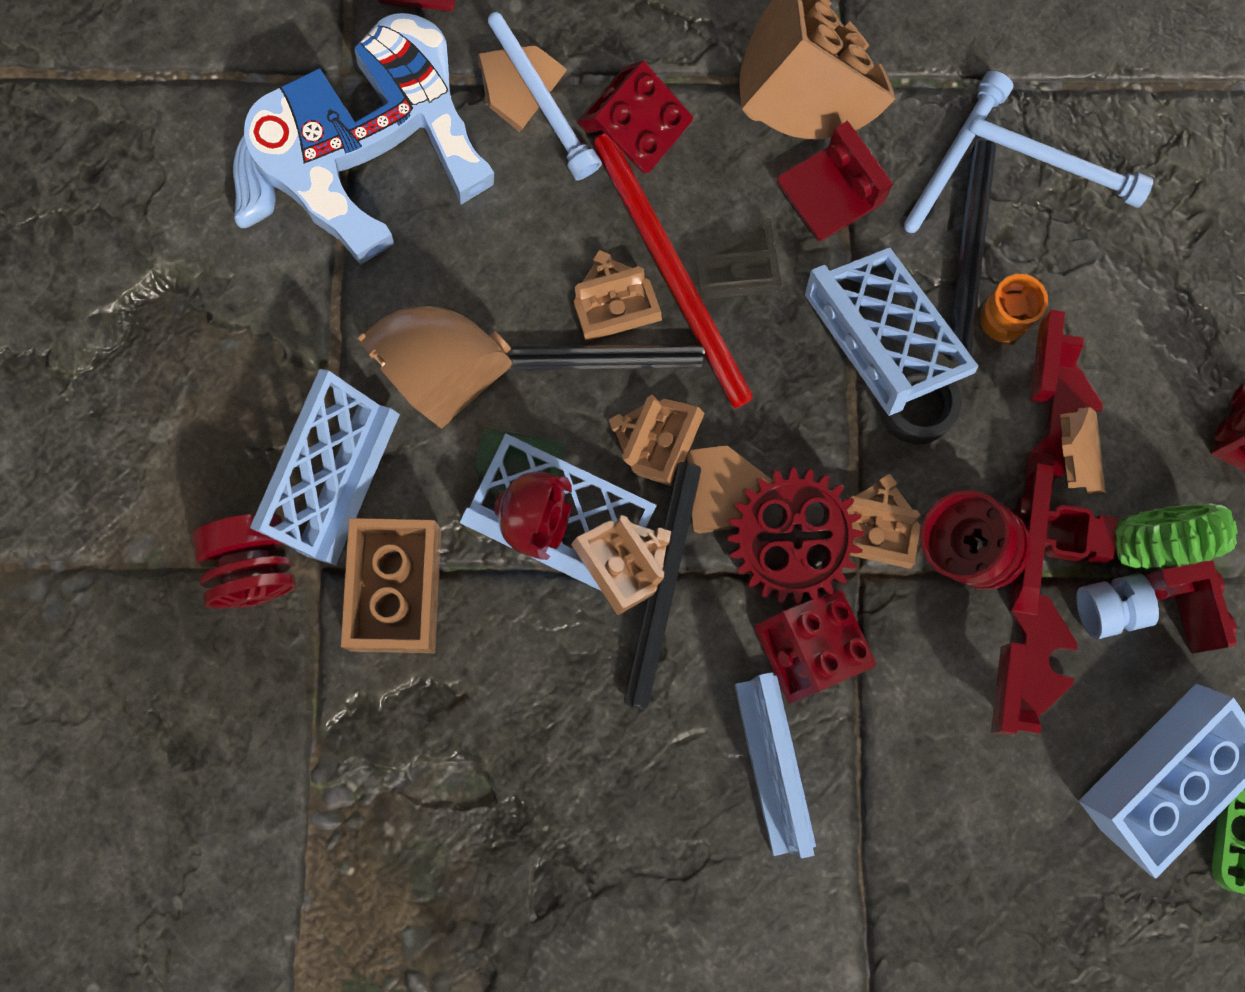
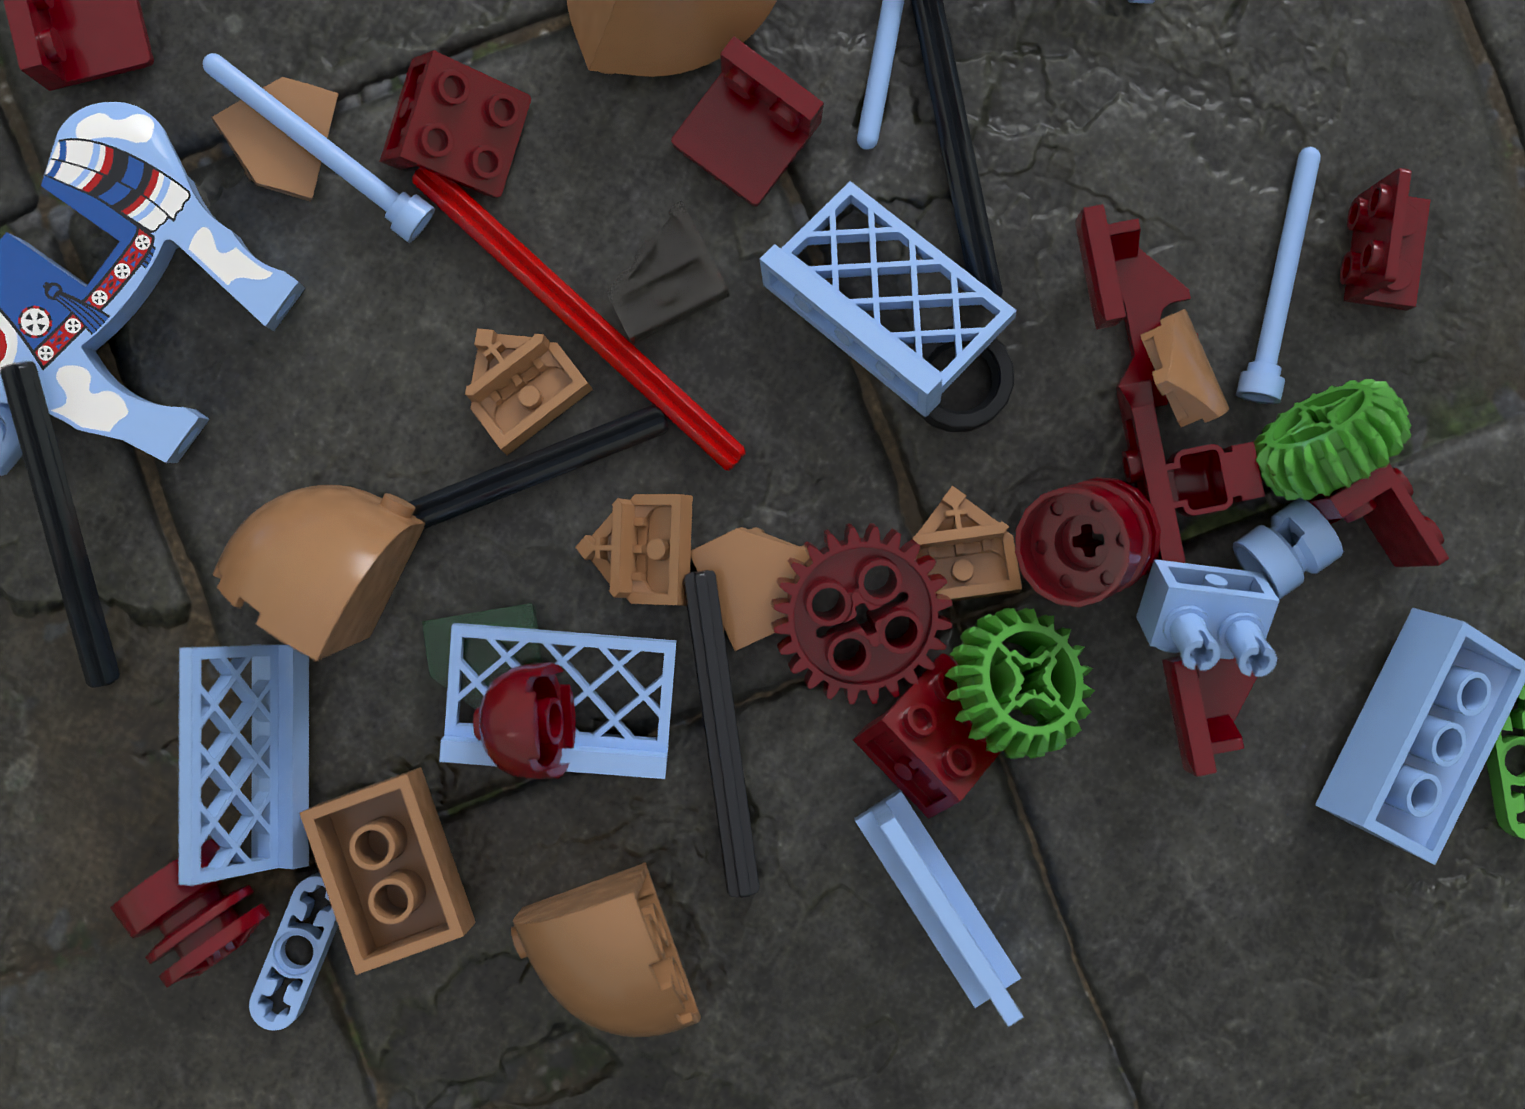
camera: 25 degrees left, 10 degrees up
(269, 269) = (60, 522): none -> black axle
(284, 623) = (269, 982): none -> light blue beam
(522, 710) = (609, 956): none -> medium nougat brick
(624, 560) = (662, 731): medium nougat slope -> none
(909, 644) = (992, 678): none -> bright green gear
(1013, 308) = (1035, 208): orange wheel -> none
(1046, 624) = (1209, 615): none -> light blue brick
(1136, 483) = (1262, 379): none -> light blue piece

